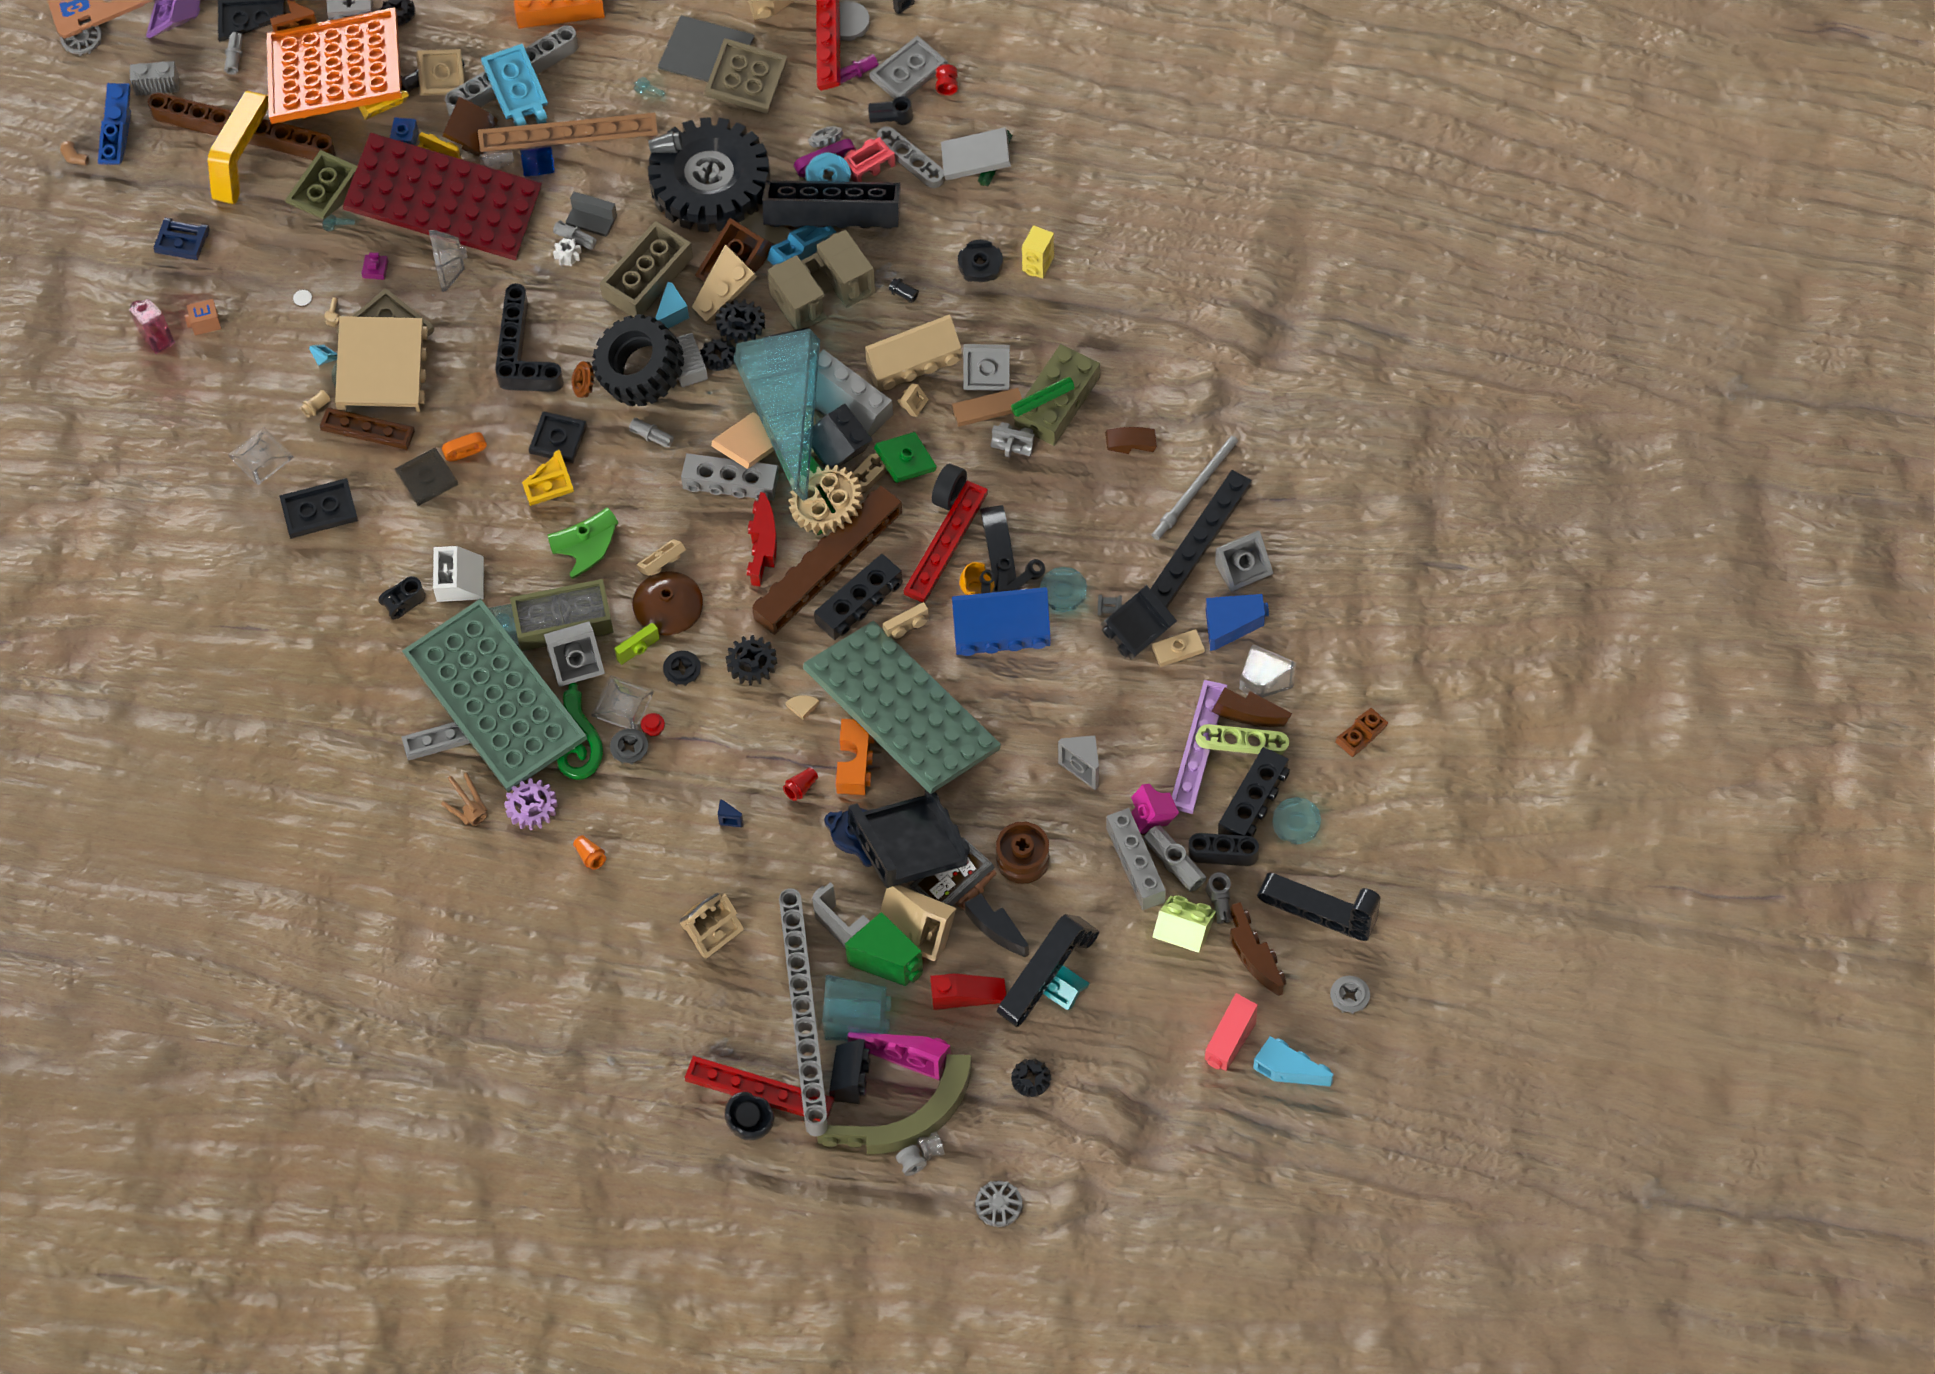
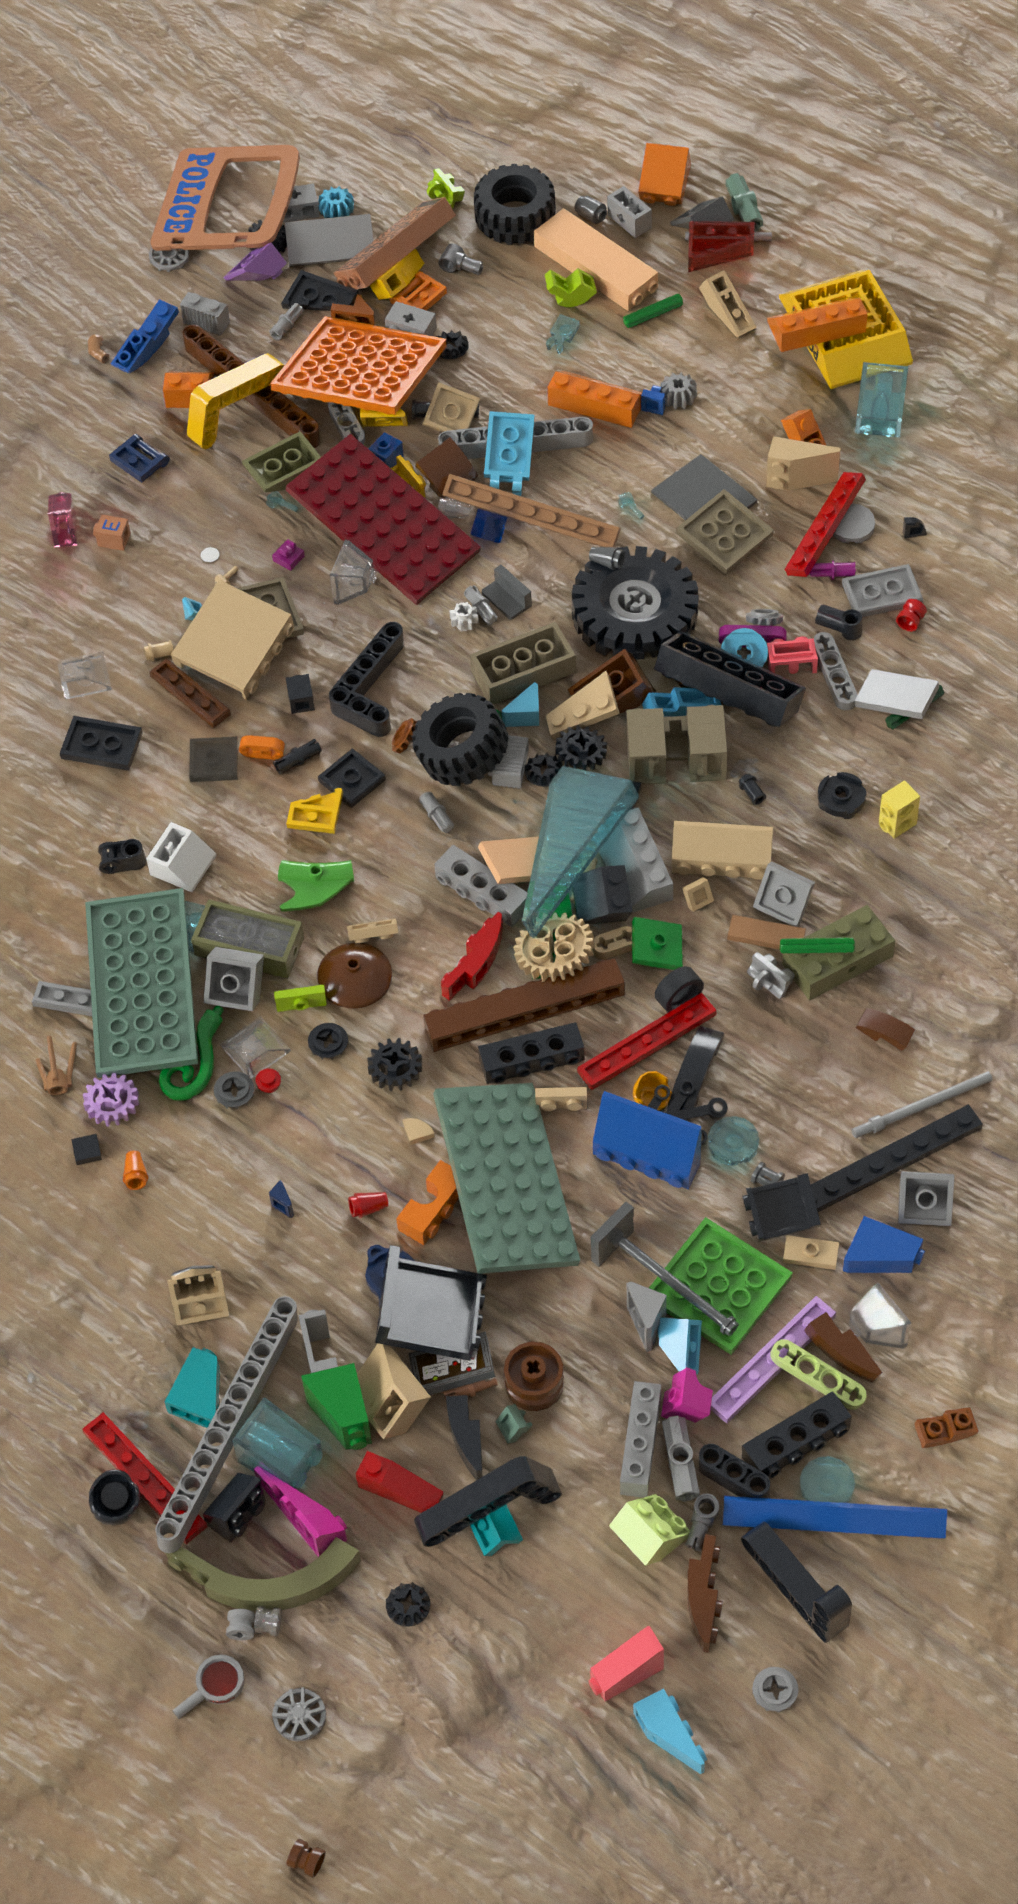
camera: 30 degrees right, 5 degrees down
(184, 154) = (180, 385): none -> orange slope
(352, 132) = (347, 415): none -> light grey beam
(467, 384) = (300, 693): none -> black brick
(499, 440) = (297, 756): none -> black pin
(535, 855) = (86, 1149): none -> black tile
(758, 1000) = (196, 1388): none -> teal slope
(918, 1212) = (218, 1682): none -> piece
(1020, 710) = (615, 1234): none -> dark grey tile
(1027, 898) = (512, 1423): none -> sand green tile
(1074, 1304) = (306, 1858): none -> reddish brown wheel
(1121, 767) = (681, 1341): none -> medium azure slope
(1123, 708) = (728, 1277): none -> bright green plate
(1318, 842) = (835, 1517): none -> blue tile

